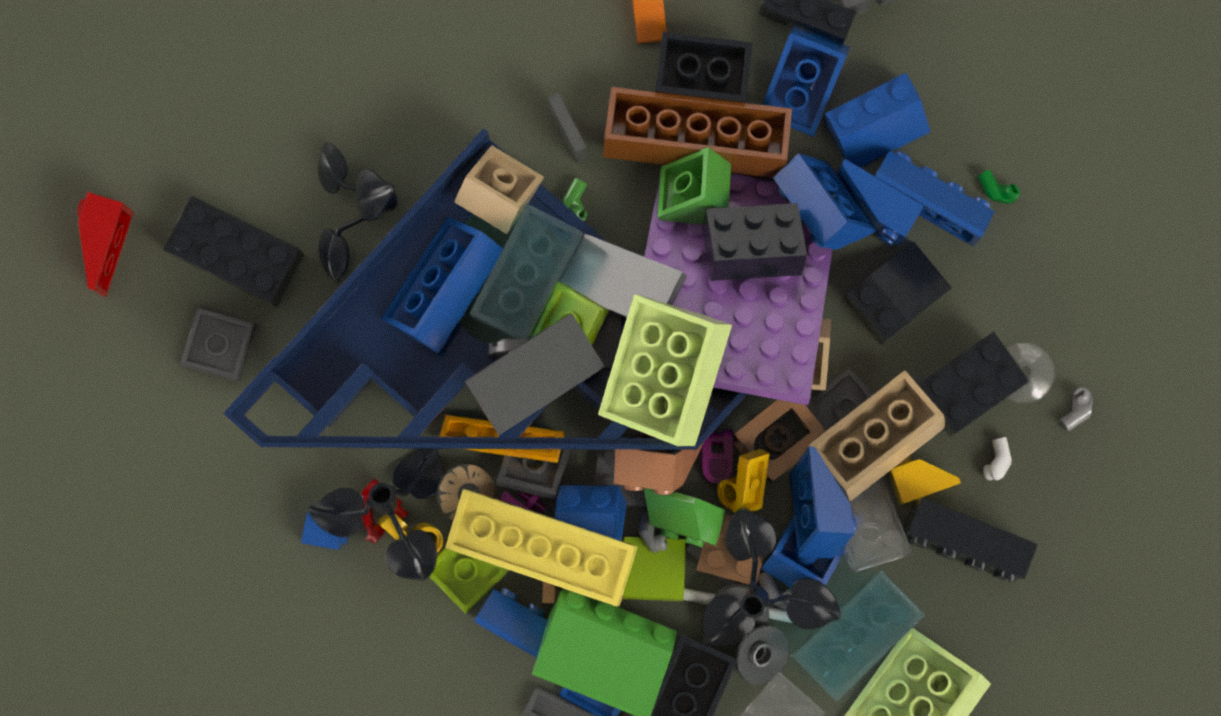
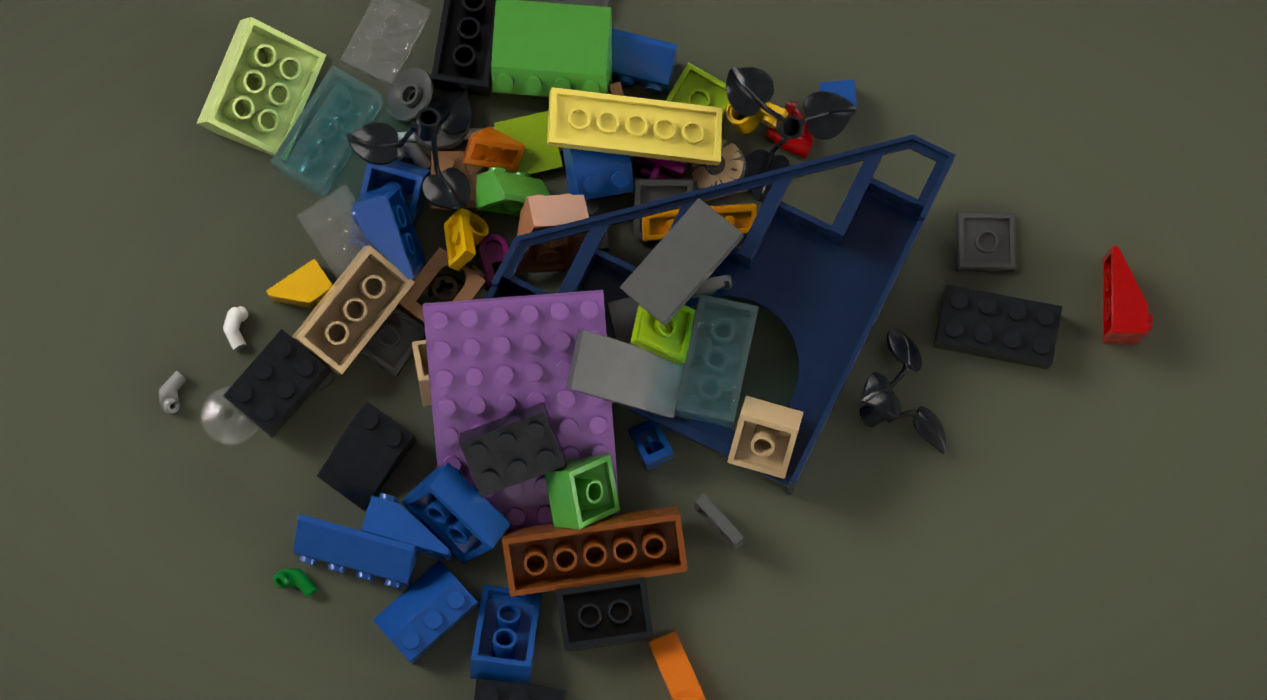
camera: 165 degrees right, 5 degrees down
(443, 284) = (792, 334): blue slope -> none
(573, 196) = (695, 460): bright green arm -> none
(612, 223) = (651, 444): none -> blue slope
(647, 533) = (541, 171): light grey arm -> none
(664, 370) = (562, 291): yellowish green slope -> none
(691, 567) = (493, 149): none -> orange slope
(969, 539) = (245, 240): black brick -> none

